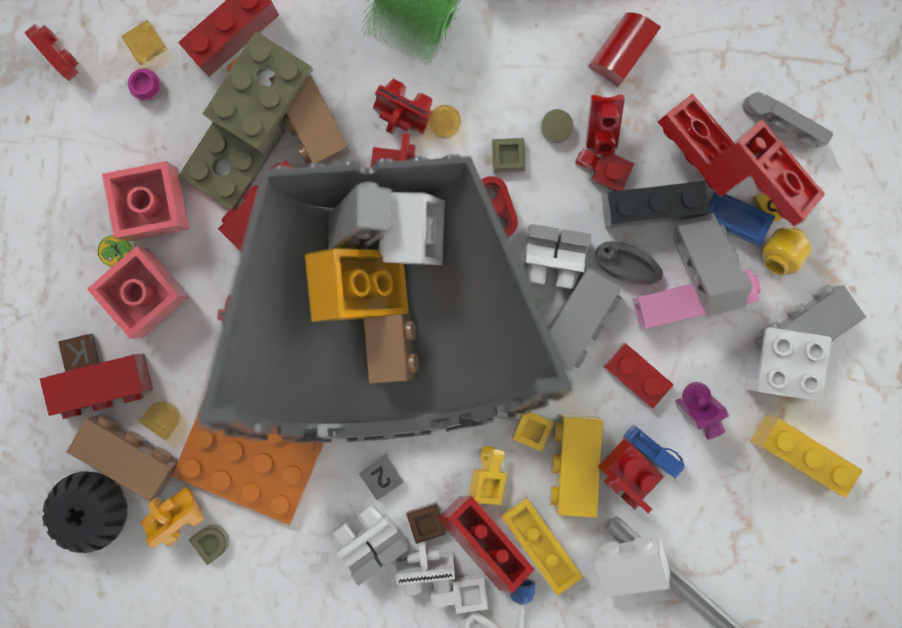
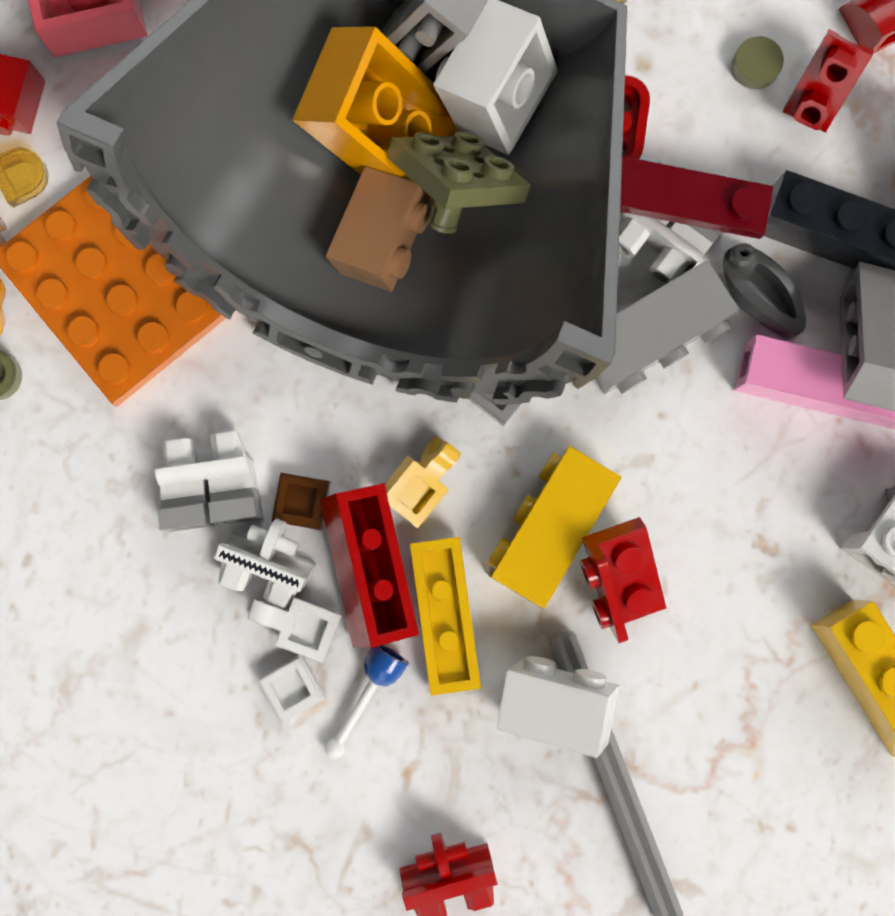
camera: 20 degrees right, 5 degrees down
(381, 477) = (273, 406): flat silver tile -> none
(423, 311) = (456, 174): none -> olive plate
(508, 155) = (672, 68): olive tile -> none
(533, 430) = (516, 447): yellow plate -> none
(561, 237) = (694, 198): none -> dark red plate
(609, 170) = (796, 152): red plate -> none
(638, 375) = (700, 451): red plate -> none
(655, 451) = (674, 572): blue piece -> none
(702, 409) = (769, 534): magenta hips -> none

